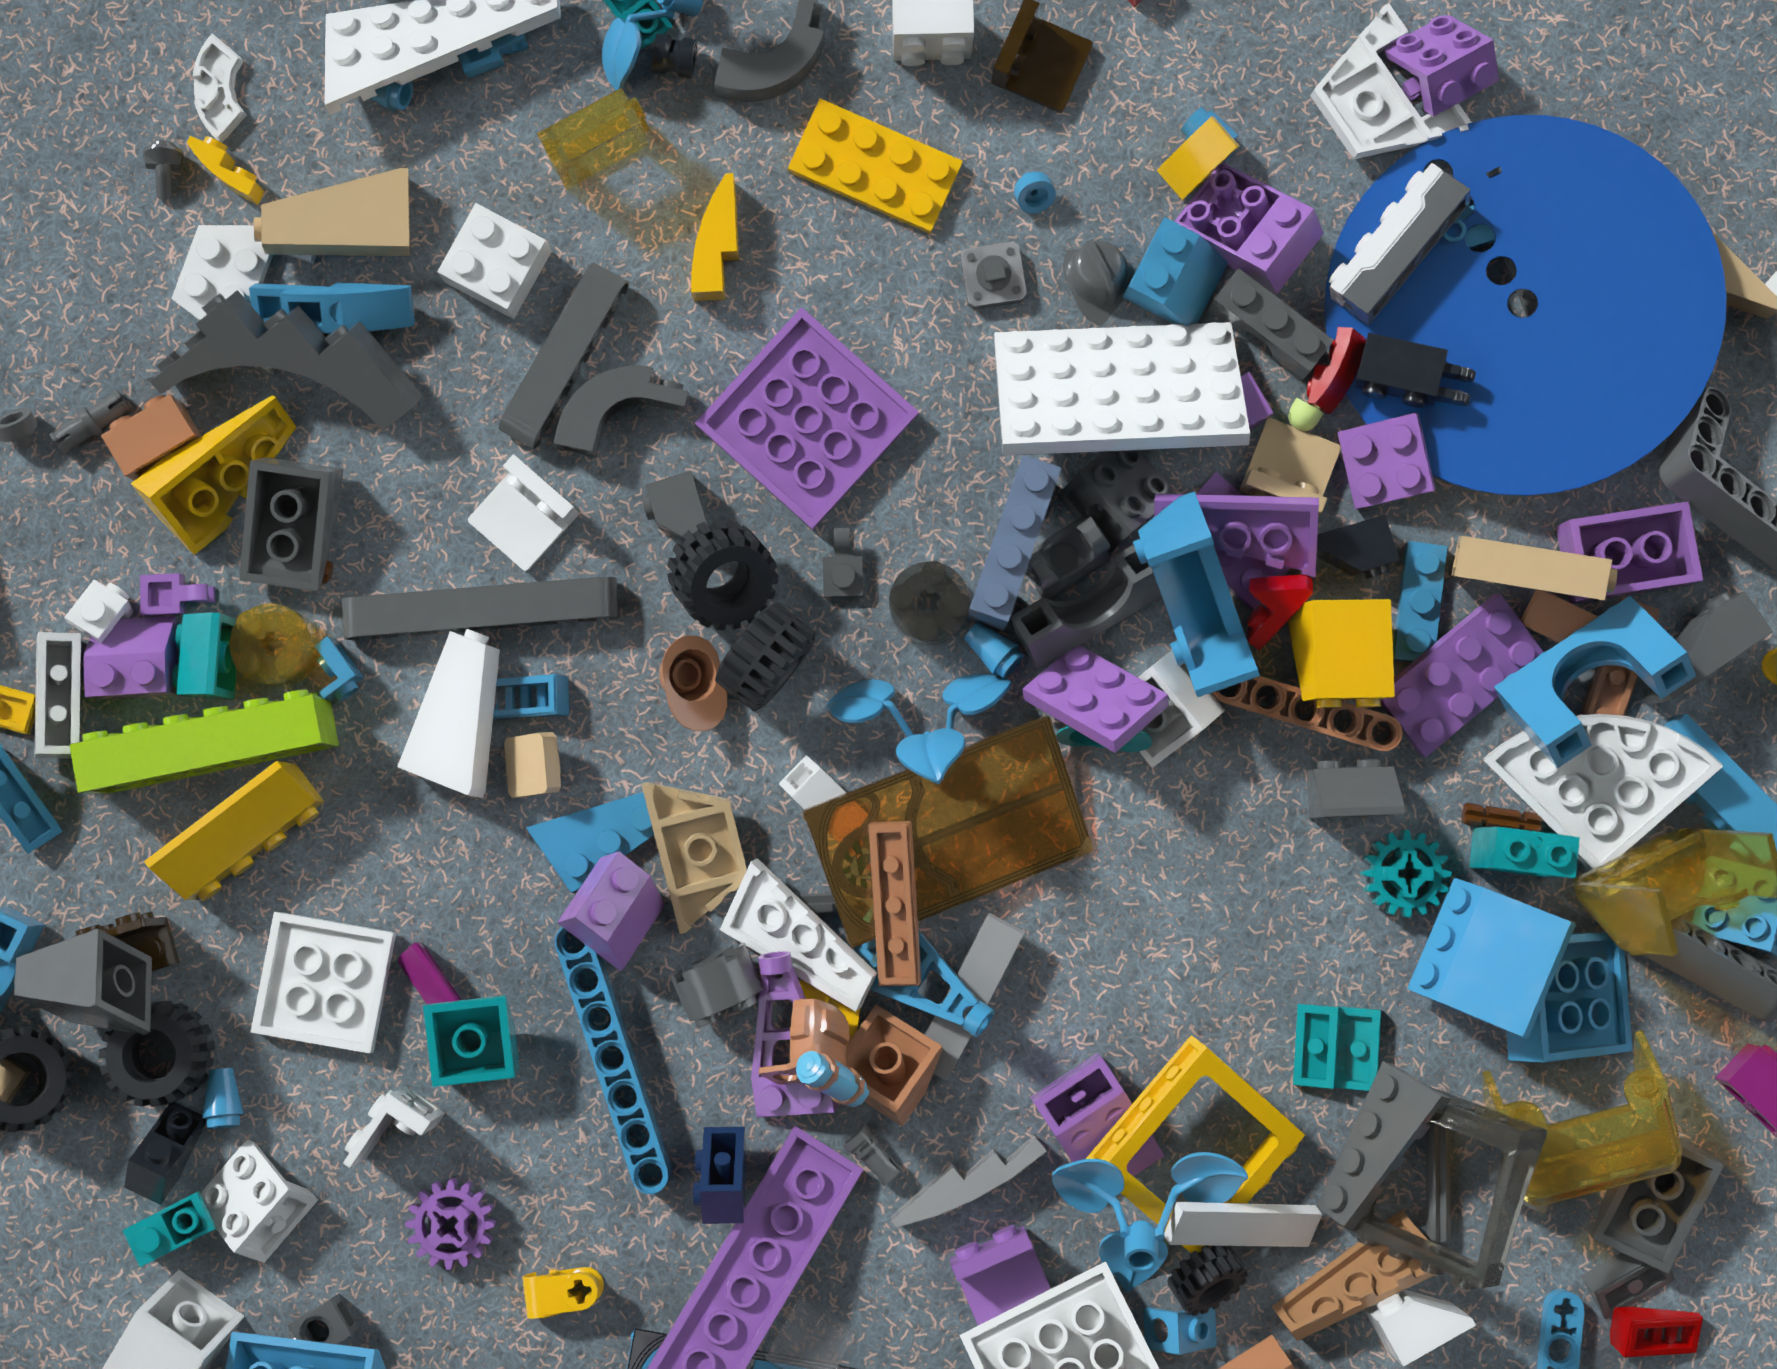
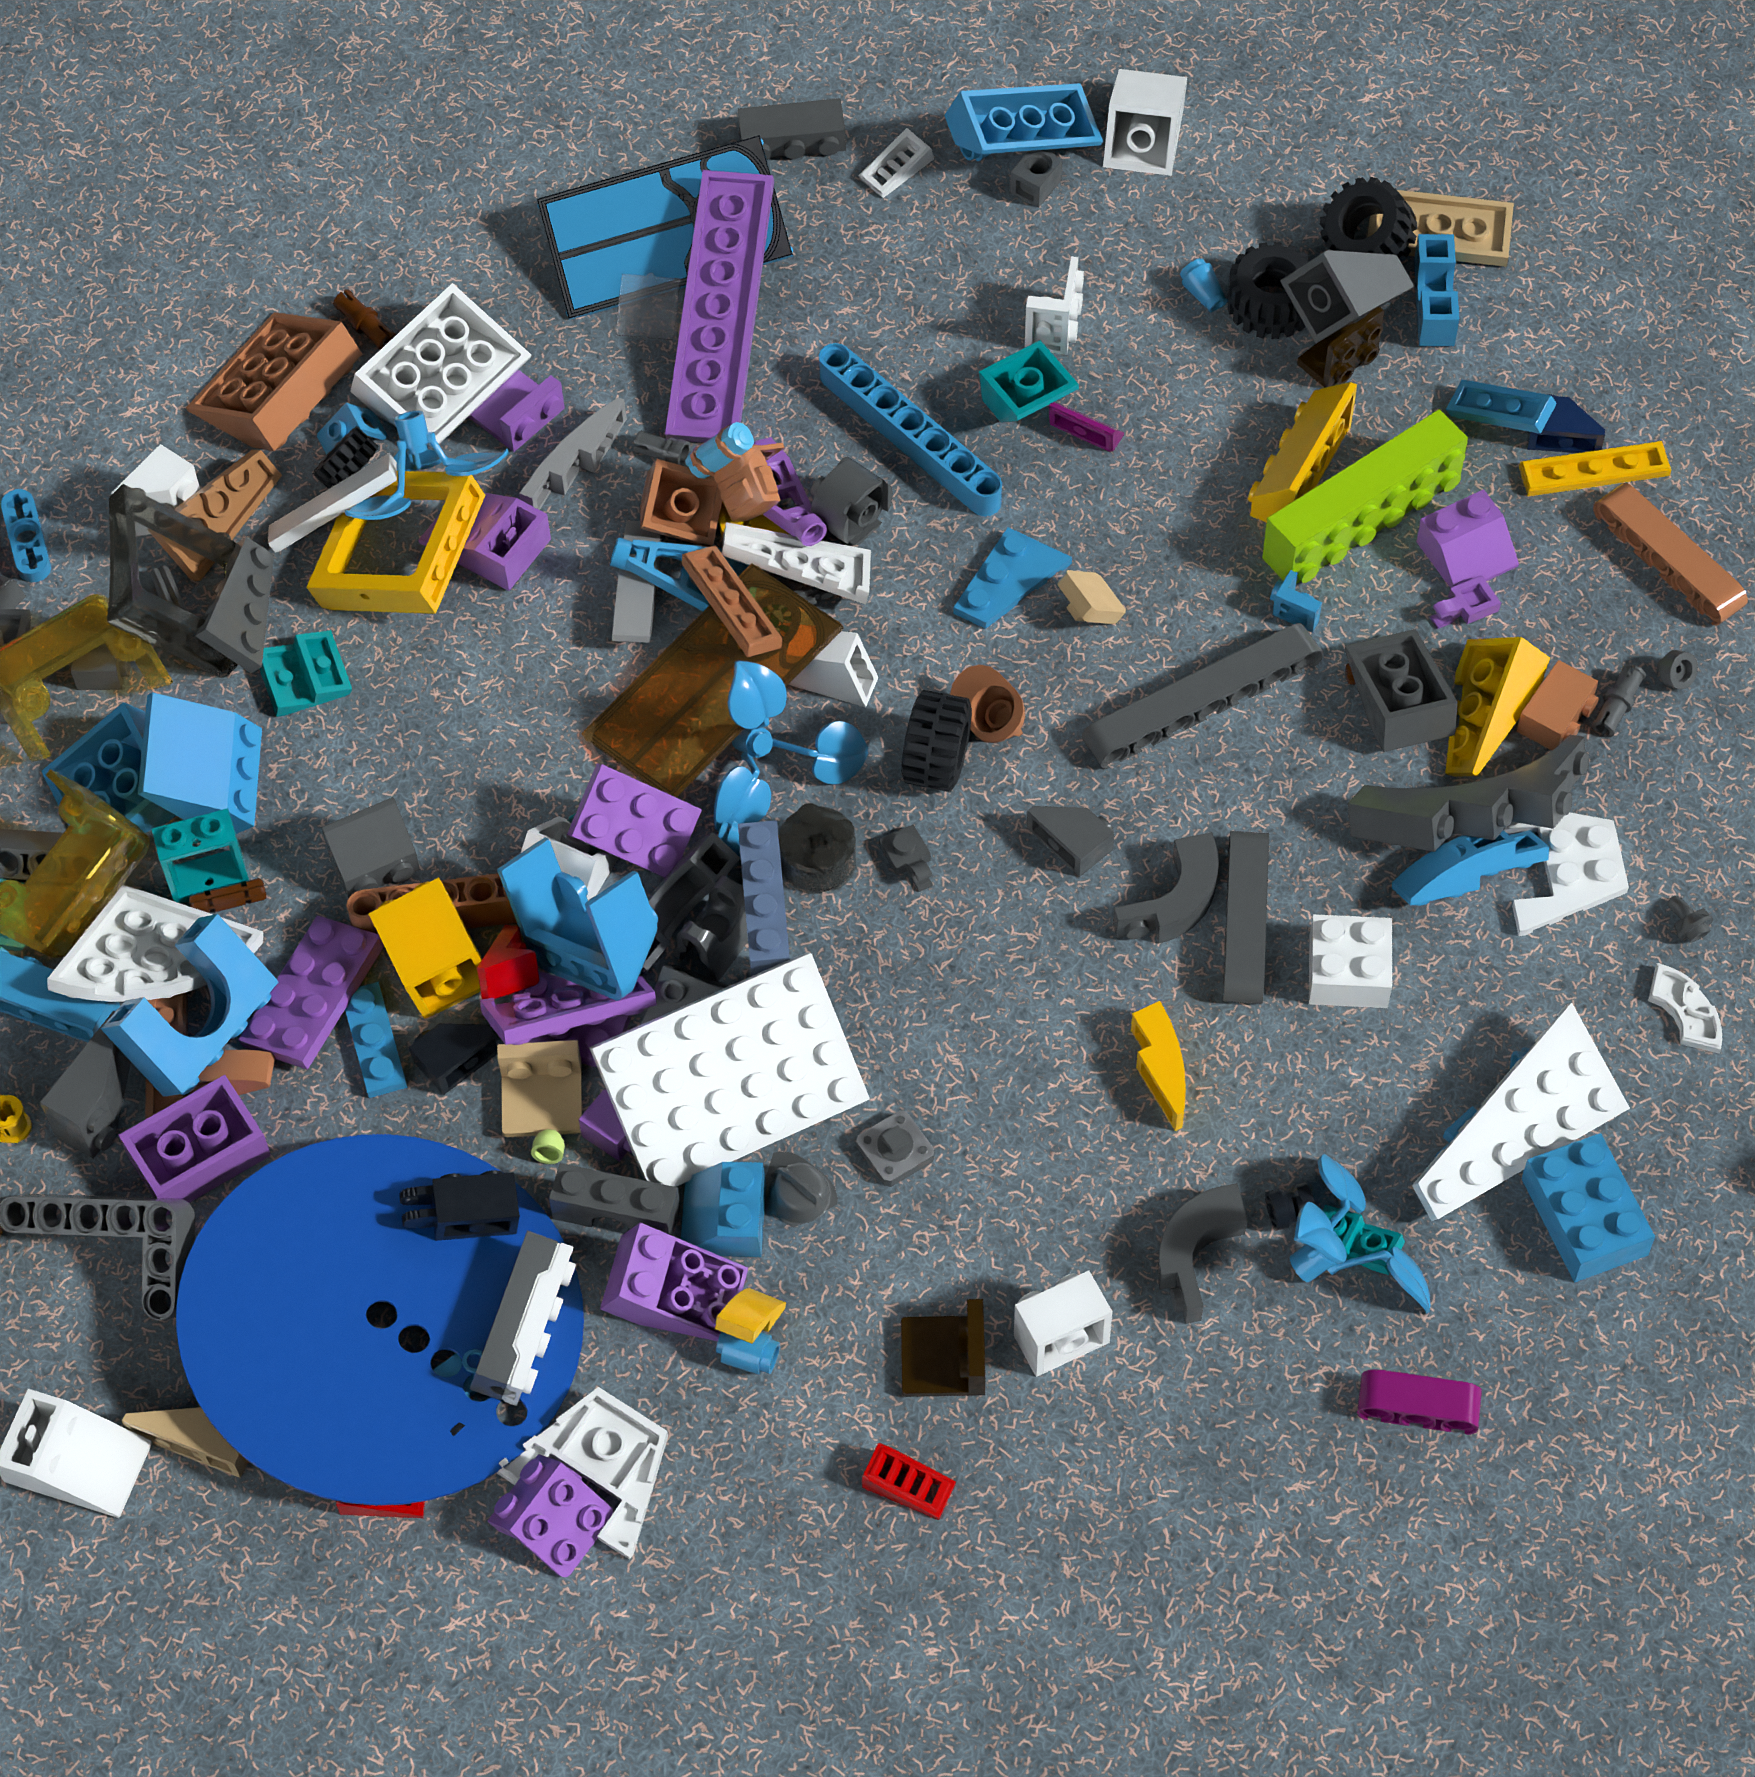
camera: 160 degrees right, 25 degrees down
(57, 694) = (1509, 488): white brick -> none
(99, 610) = (1515, 561): white bracket -> none
(164, 1153) = (1226, 233): black slope -> none
(169, 1229) = (1193, 184): teal slope -> none
(205, 657) = (1405, 564): teal slope -> none
(216, 159) = (1646, 939): yellow slope -> none
(254, 1203) = (1141, 228): white bracket -> none
(262, 626) = (1356, 595): clear yellow brick -> none
(323, 982) = (1172, 391): white plate -> none
(343, 219) = (1503, 934): tan slope -> none
(439, 1211) = (976, 275): medium lavender gear -> none
(456, 717) = (1173, 602): white slope -> none
(523, 515) = (1207, 781): white bracket -> none
(555, 1291) = (867, 264): yellow piece -> none
(557, 690) = (1107, 663): dark azure slope -> none
(595, 137) = (1318, 1088): clear yellow window -> none
(613, 909) = (965, 515): medium lavender slope -> none
(696, 849) = (922, 594): tan wing -> none
(723, 1175) = (776, 375): dark blue brick -> none
(738, 597) = (1007, 786): black tyre -> none
(807, 418) = (1002, 957): medium lavender plate -> none
(875, 166) = (1053, 1196): yellow plate -> none
(1034, 192) = (893, 1232): dark azure tile -> none
(1332, 381) = (533, 1182): red slope -> none
(1386, 461) = (454, 1133): medium lavender plate -> none
(1405, 889) = (280, 825): teal gear -> none
(1534, 568) = (288, 1074): tan slope -> none

